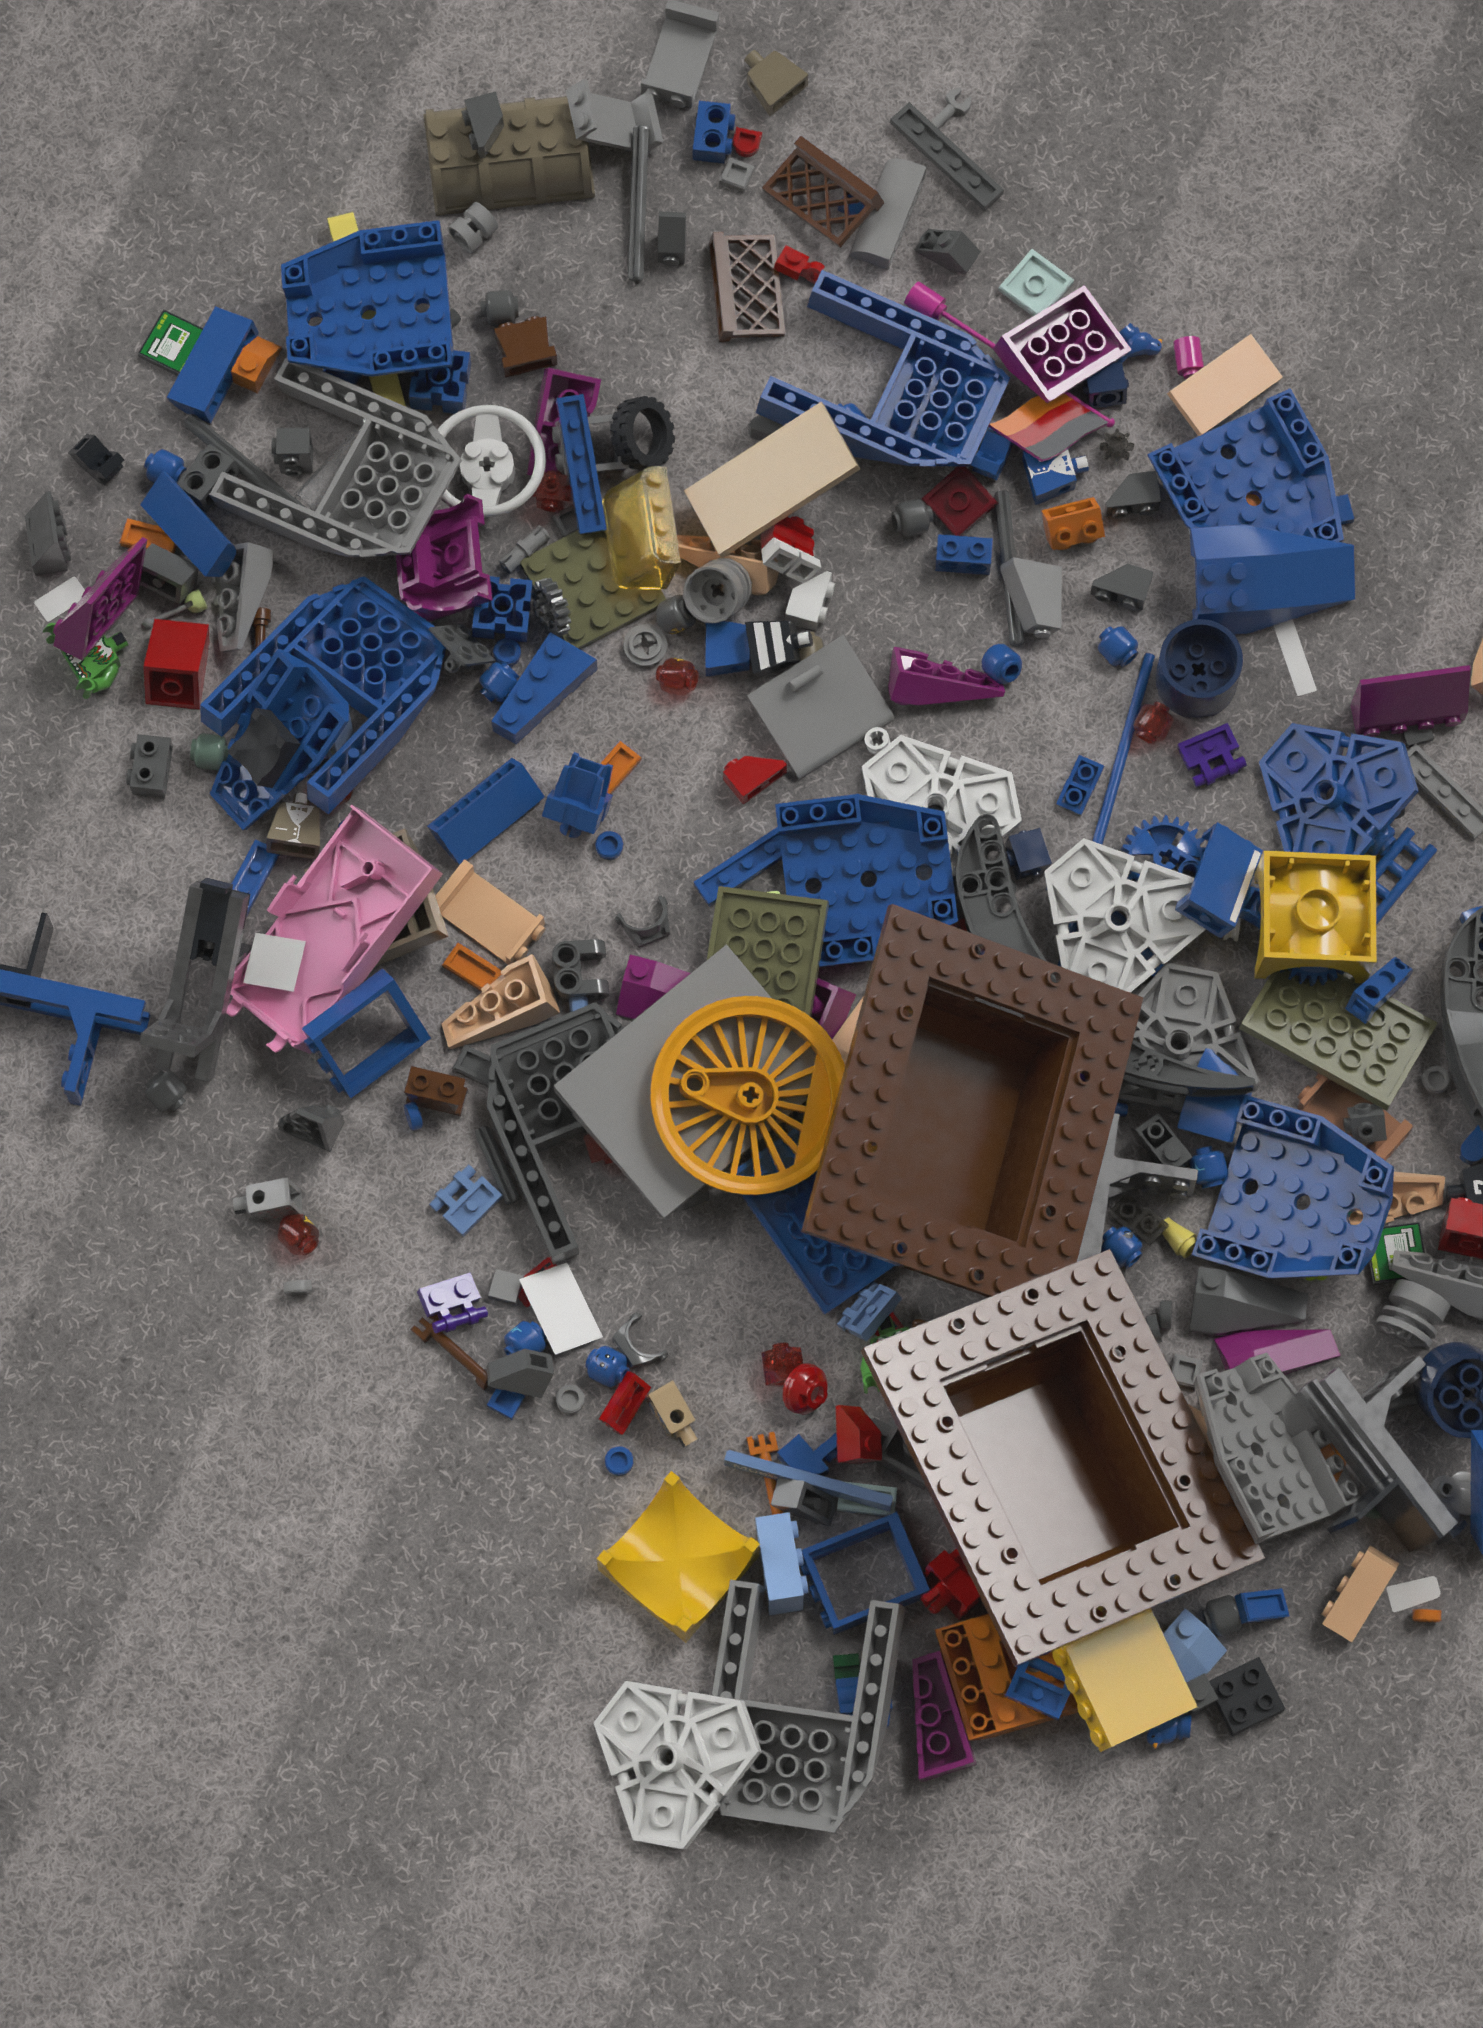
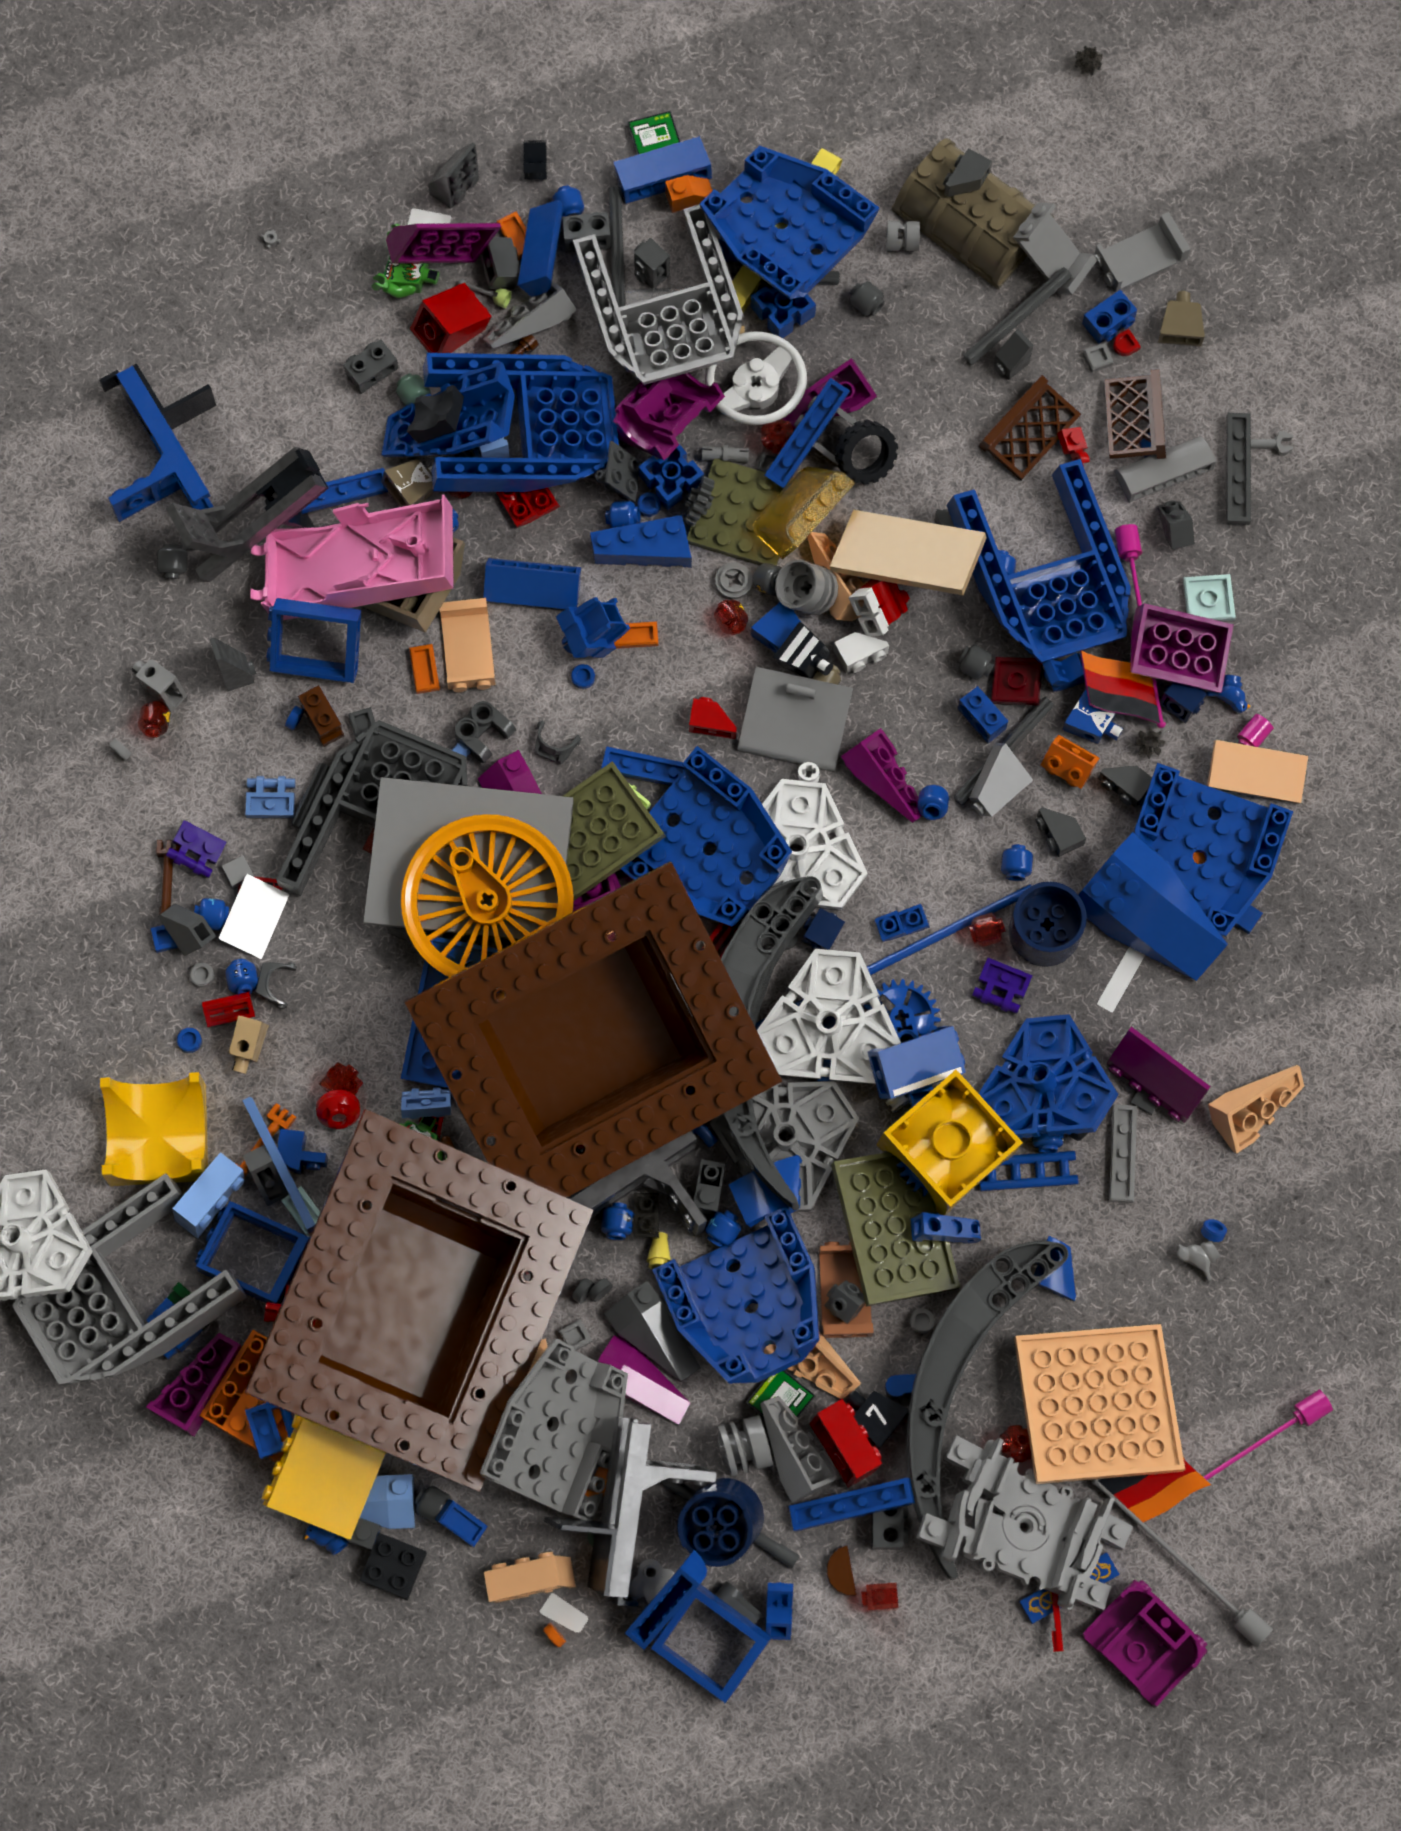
camera: 45 degrees right, 0 degrees up
(274, 962) = (310, 547): white sticker -> none
(410, 752) = (529, 505): none -> red slope
(508, 1004) = (424, 710): light nougat wedge -> none
(525, 346) = (857, 335): reddish brown hips -> none
(856, 1436) = (327, 1166): red slope -> none

